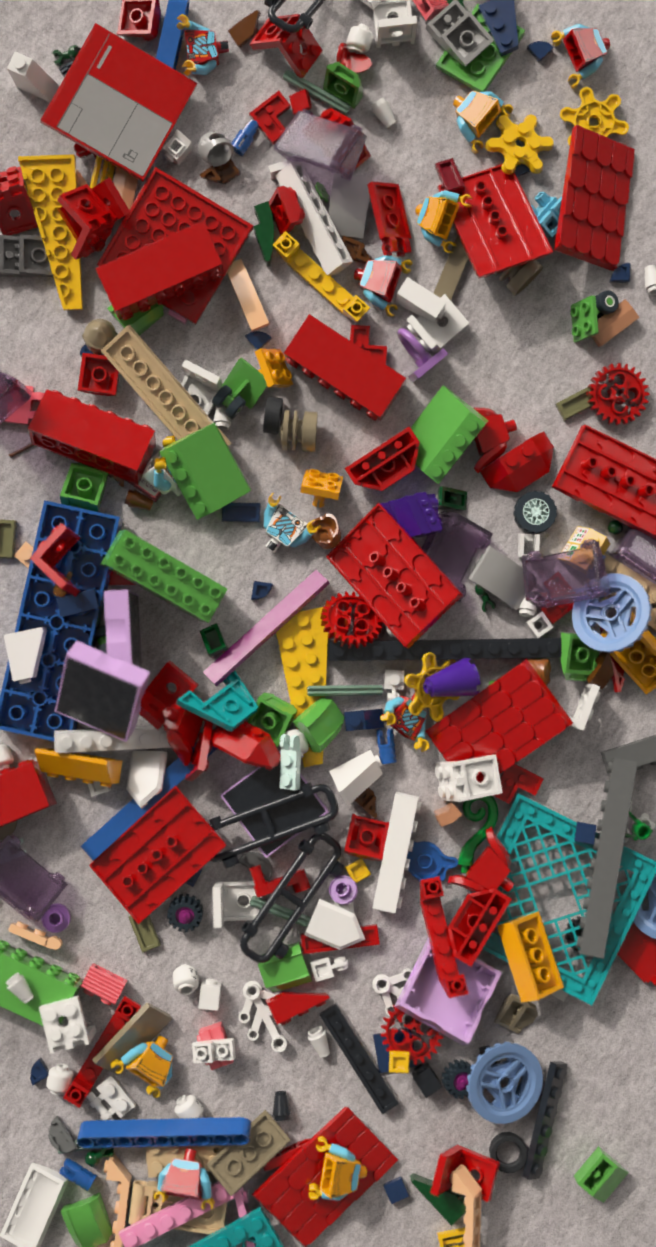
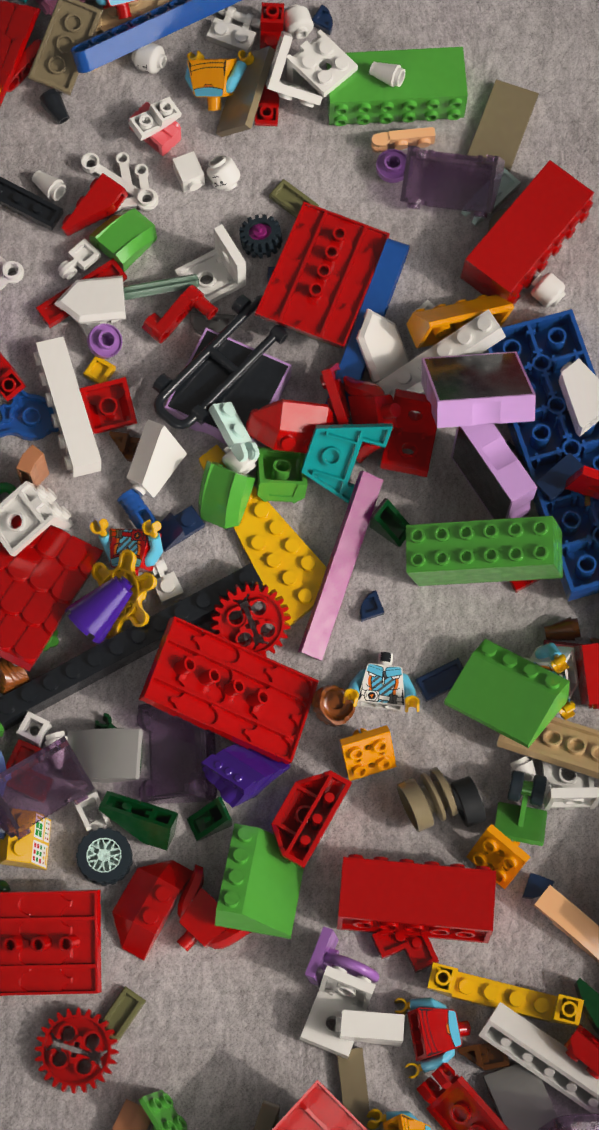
camera: 150 degrees right, 15 degrees down
(101, 1022) = (284, 88): none -> white bracket
(103, 984) = (305, 129): coral brick -> none
(279, 948) = (143, 247): black bar -> none
(322, 191) = (564, 1104): bright green plant -> none
(345, 690) = (216, 545): sand green axle -> none
(499, 522) = (142, 820): none -> dark green slope

